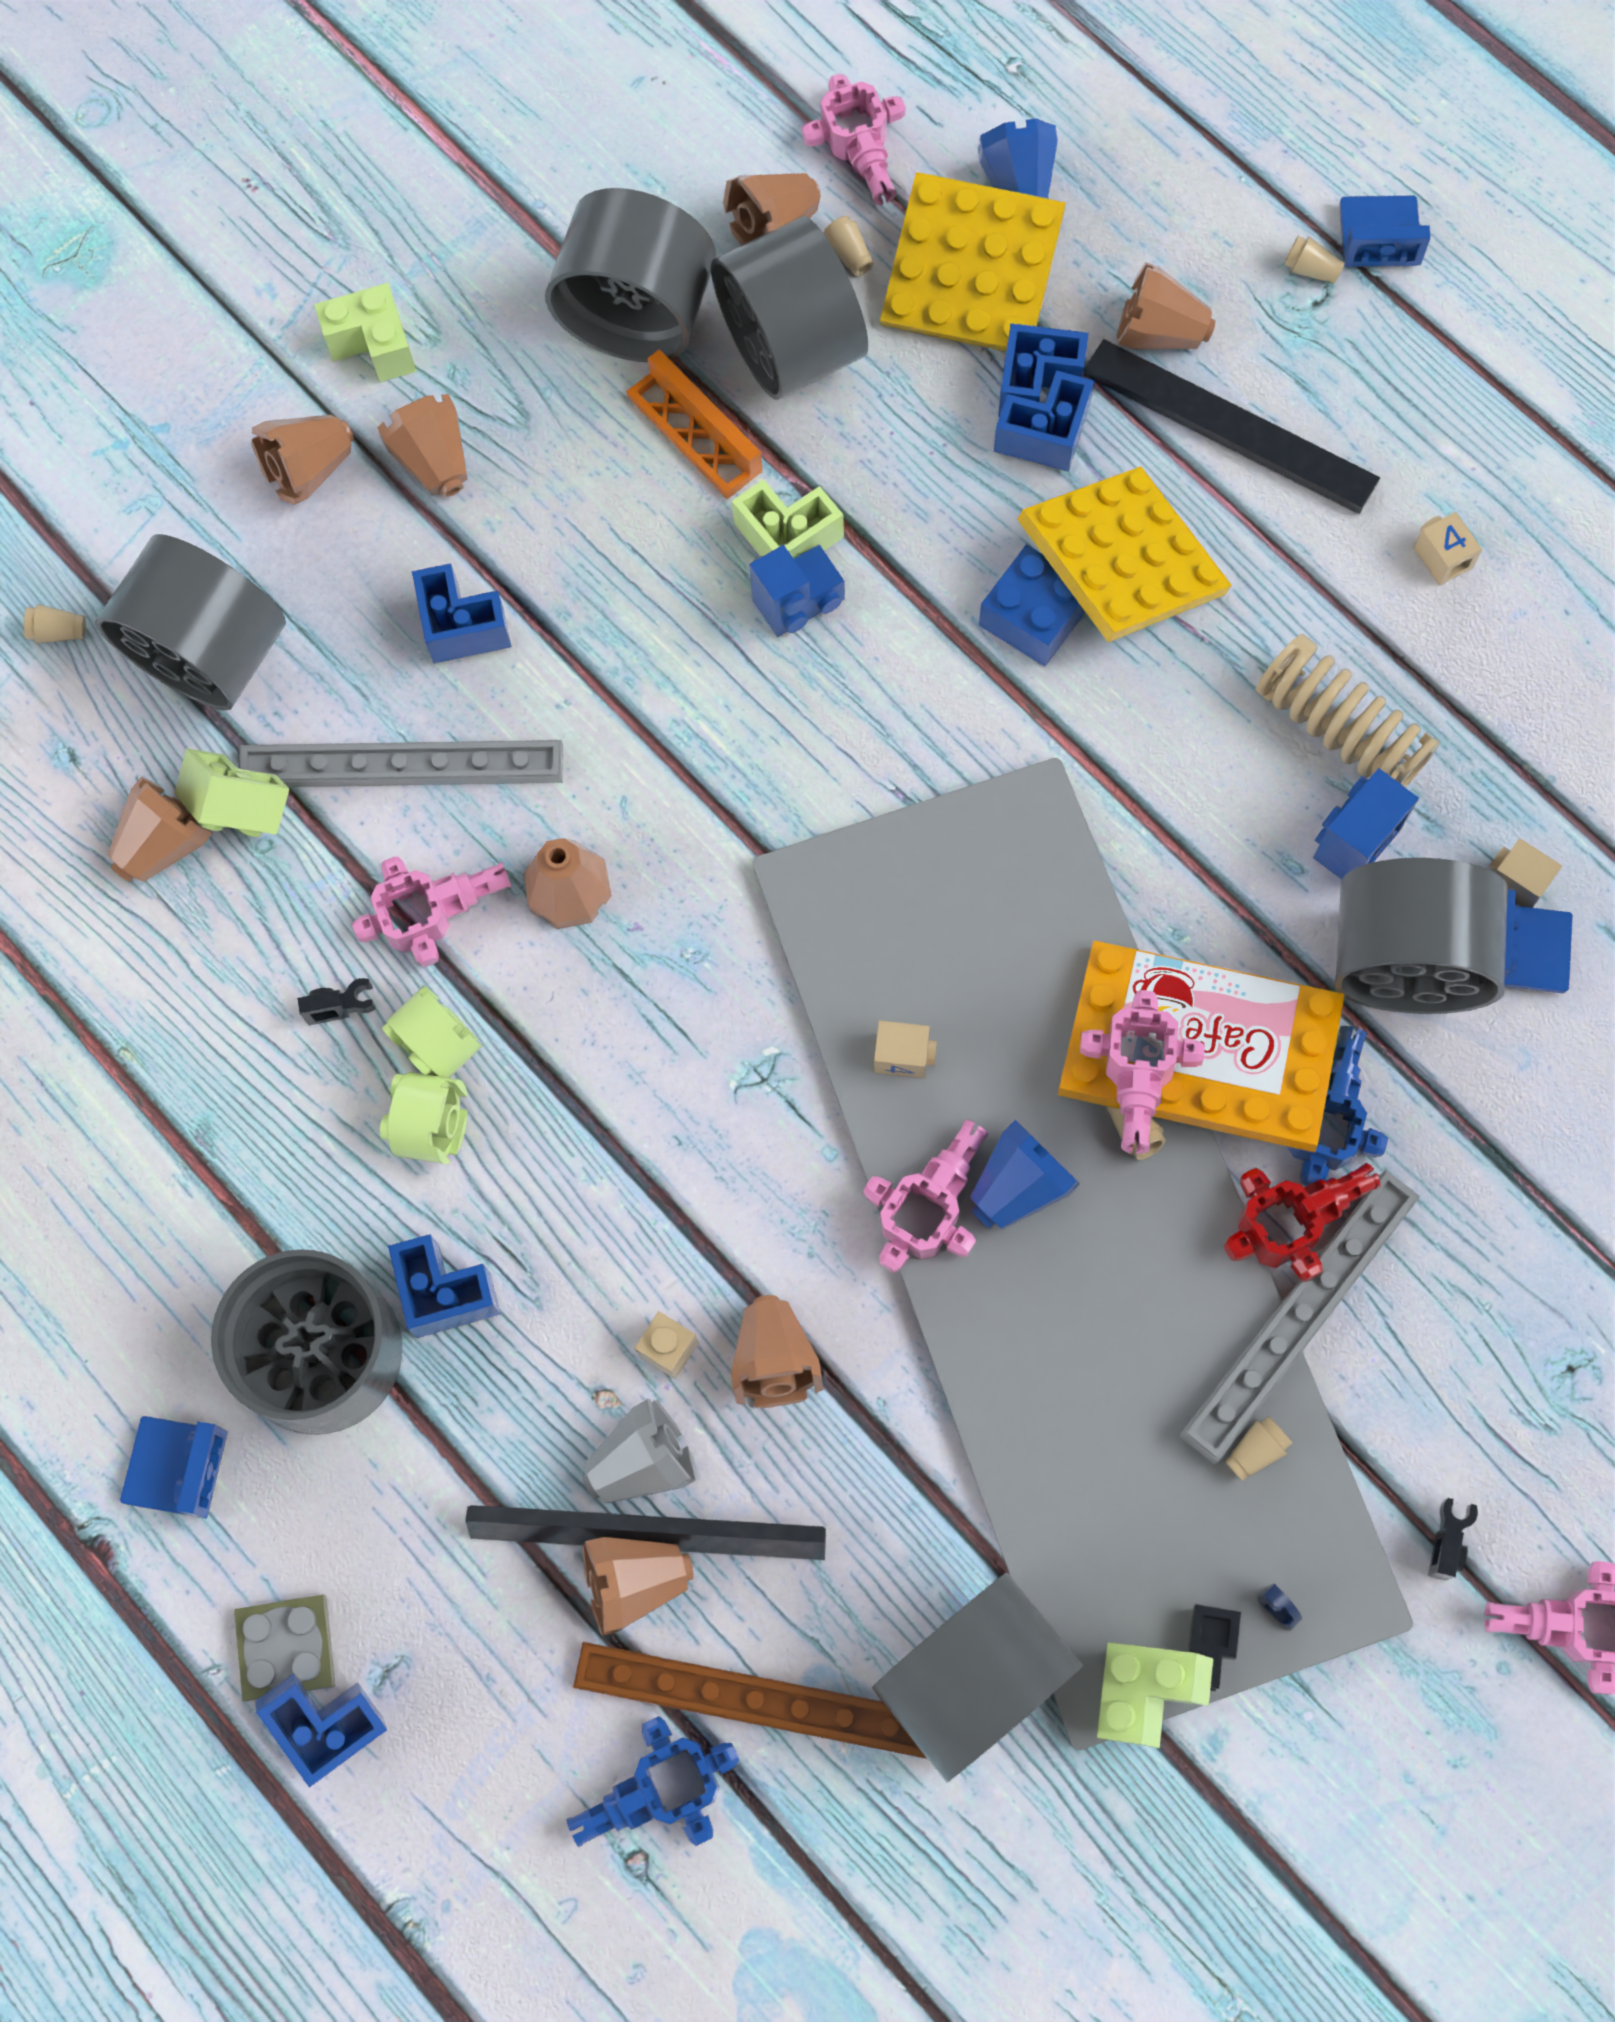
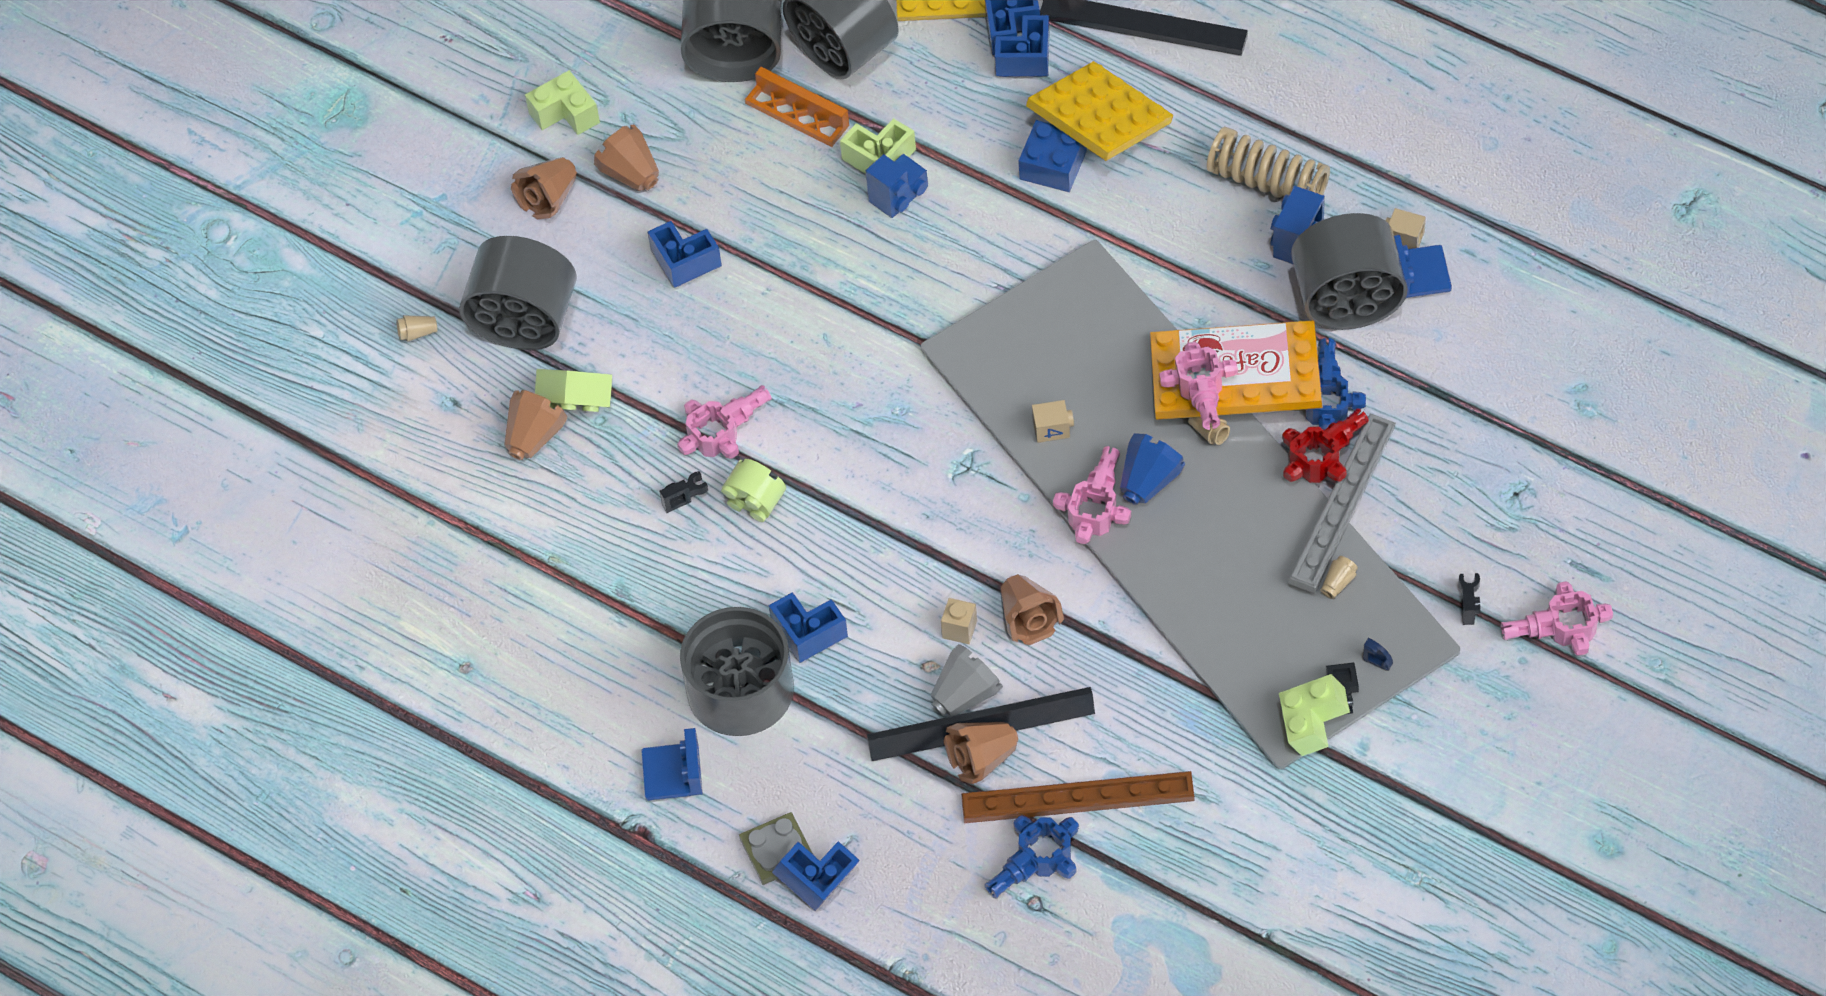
camera: 15 degrees left, 15 degrees down
(408, 763) = (683, 347): light grey tile -> none
(425, 1117) = (764, 535): yellowish green brick -> none
(566, 883) = (805, 386): nougat cone -> none
(977, 1677) = (1206, 726): dark grey wheel -> none
(1447, 547) = (1302, 59): tan brick -> none

